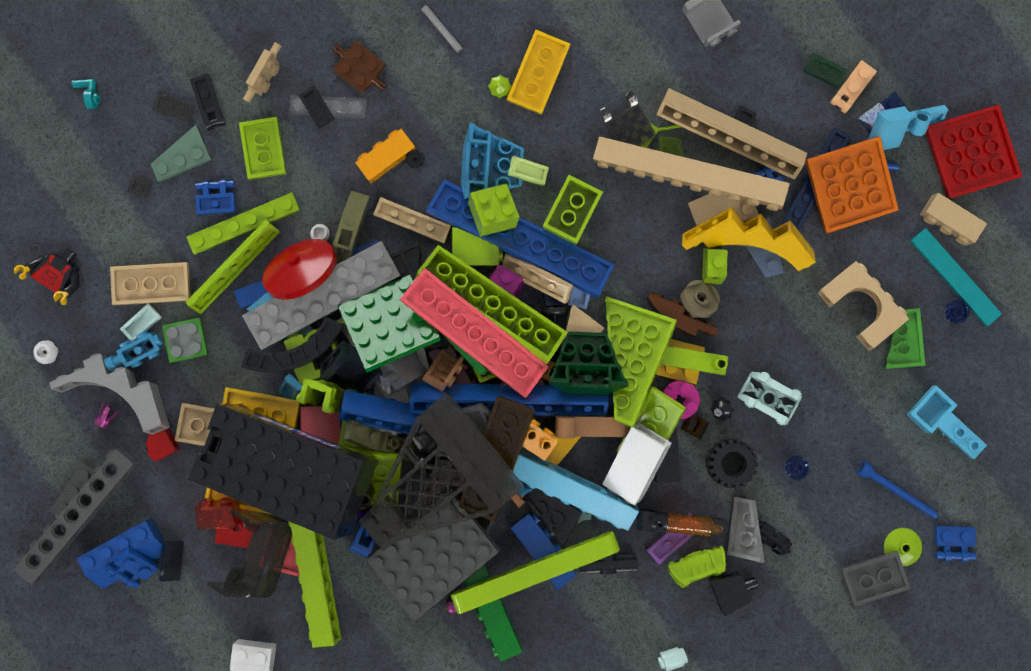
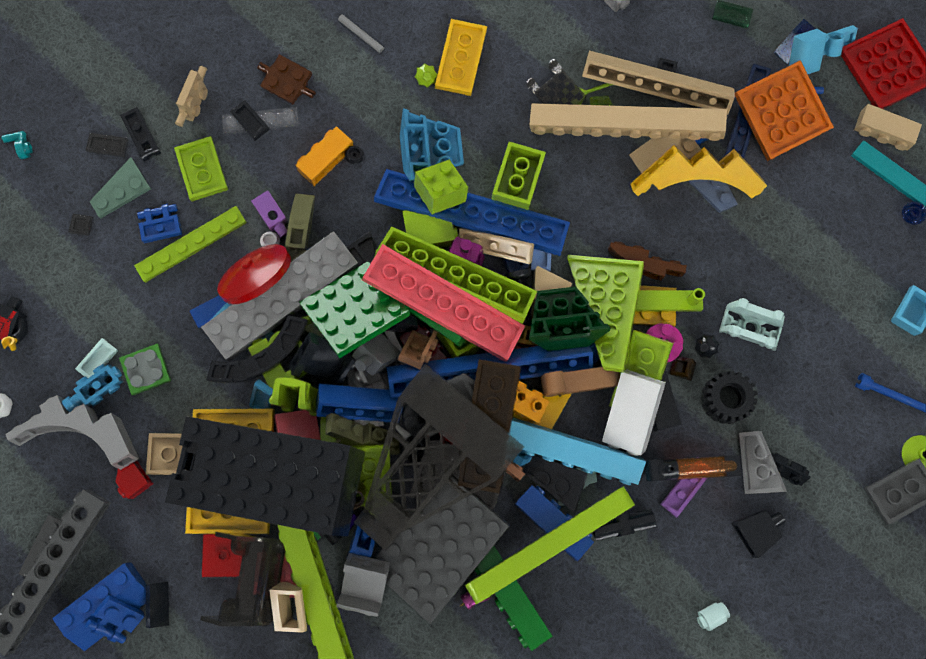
camera: 10 degrees left, 10 degrees down
(102, 420) = (65, 465): flat silver piece -> none
(150, 283) = (102, 318): tan plate -> none
(216, 513) = (201, 542): clear red brick -> none
(232, 267) = (185, 287): lime plate -> none
(282, 586) = (282, 610): none -> tan tile
(320, 200) = (266, 203): none -> medium lavender torso
(359, 577) = (363, 584): none -> light grey panel
(412, 220) = (360, 213): tan plate -> none
(528, 171) = (467, 148): yellowish green tile -> none
(693, 305) = (660, 249): dark tan plate -> none
(698, 566) = (718, 510): lime piece -> none
(714, 265) = (669, 203): lime torso -> none
(802, 470) = (801, 392): clear blue plate -> none
(853, 86) = (762, 24): light nougat plate -> none
(888, 316) = (812, 198): tan arch -> none
(907, 343) = (873, 249): bright green wing -> none

